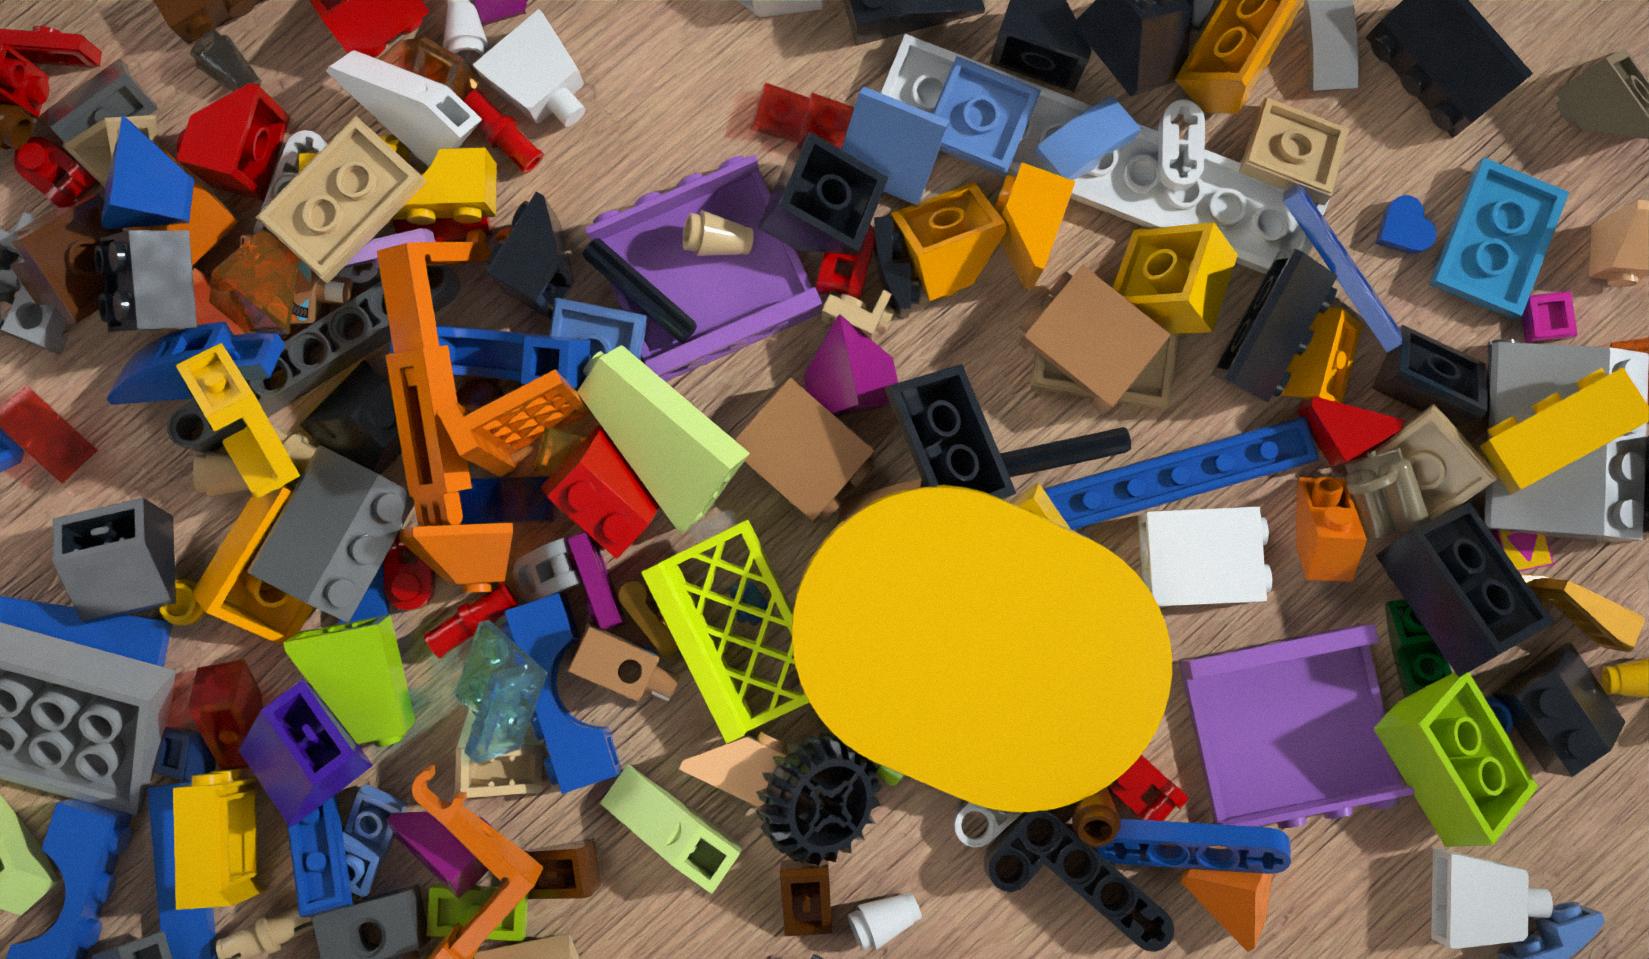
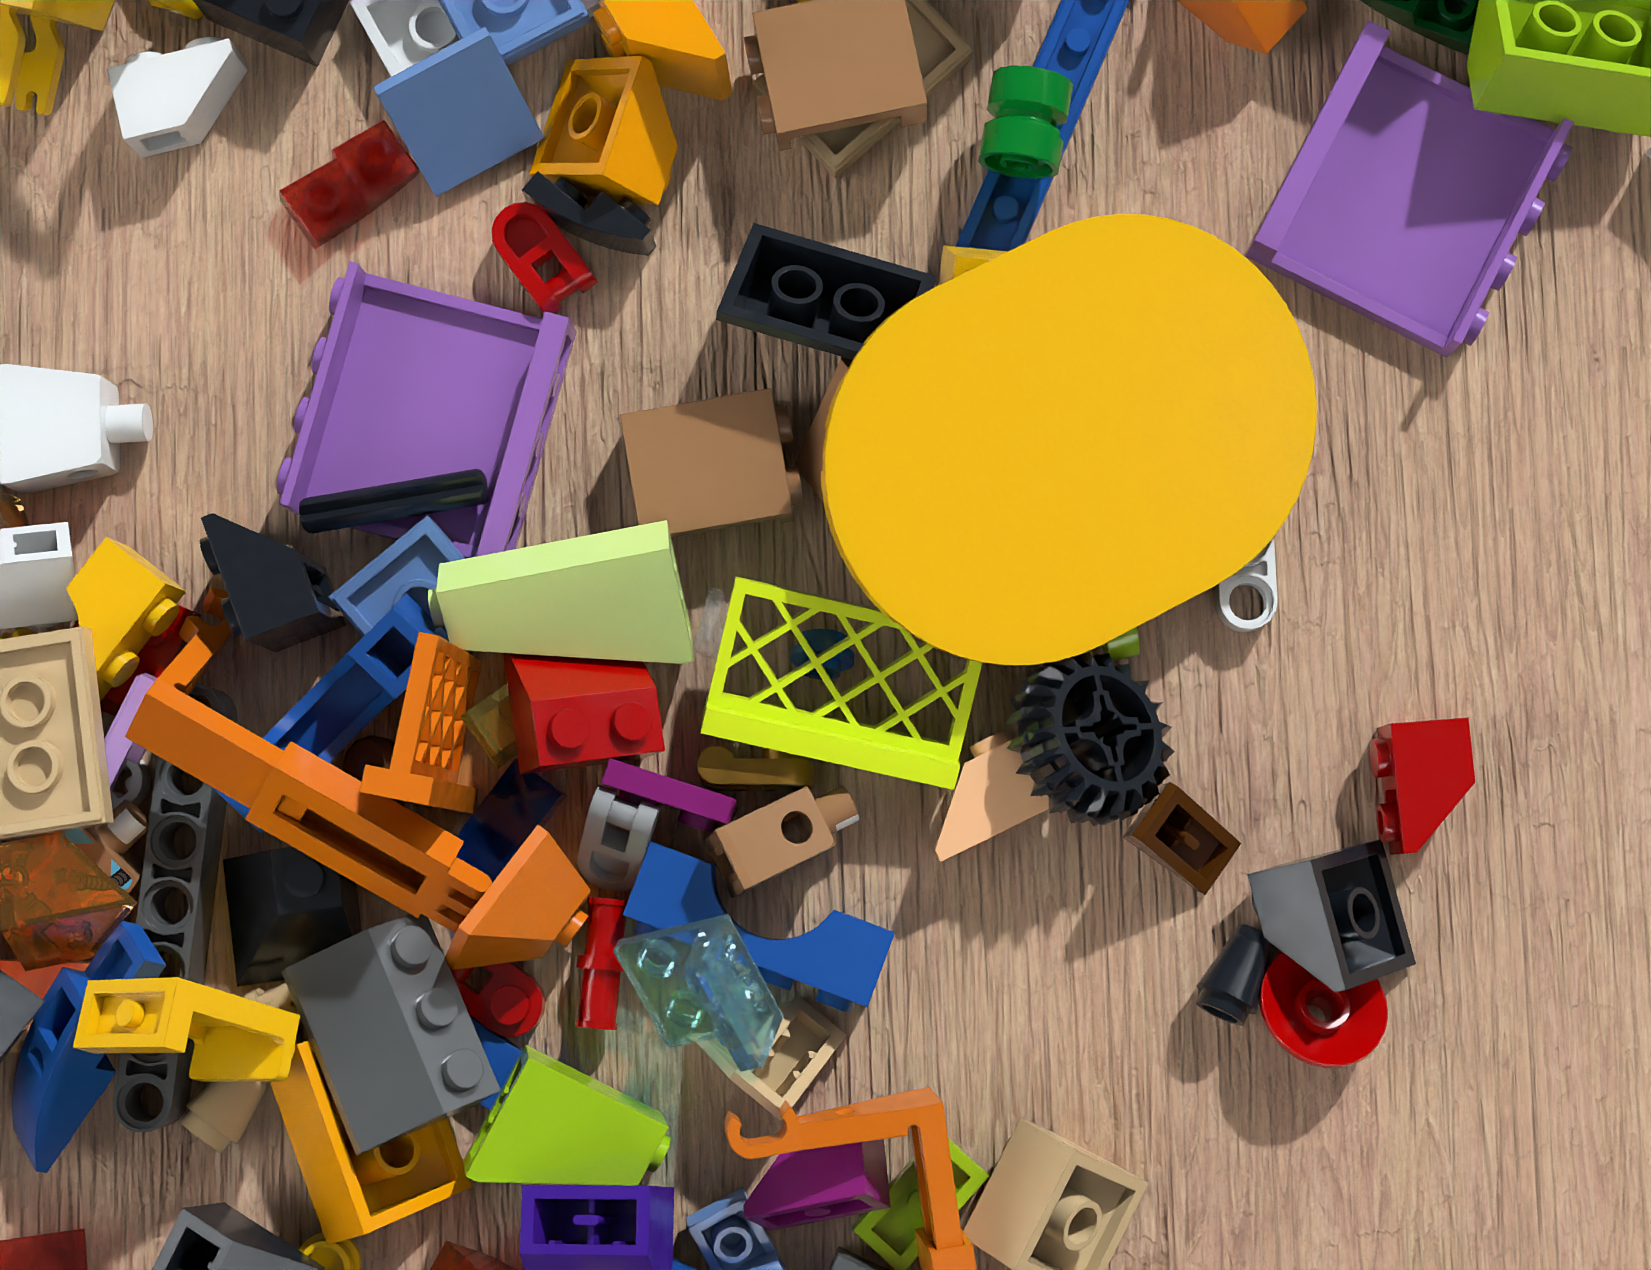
camera: 40 degrees left, 0 degrees up
(503, 133) = (101, 513): red pin -> none
(568, 871) = (954, 1069): reddish brown slope -> none
(672, 829) = (996, 921): yellowish green slope -> none
(714, 235) = (401, 374): tan cone -> none
(823, 199) = (457, 229): black slope -> none
(850, 371) = (665, 349): magenta slope -> none
(855, 313) = (607, 301): tan bracket -> none
(883, 920) = (1269, 777): white cone -> none
(1067, 452) = (935, 191): black axle -> none
(1086, 882) = (1398, 535): black beam -> none
(1096, 819) = (1341, 466): reddish brown cone -> none
(1137, 780) = (1336, 403): red plate -> none
(1154, 469) = (1026, 111): none -> green wheel
(1204, 556) = (1158, 136): white panel -> none
(1234, 899) = (1522, 383): orange slope -> none
(1246, 850) = (1513, 320): blue beam -> none

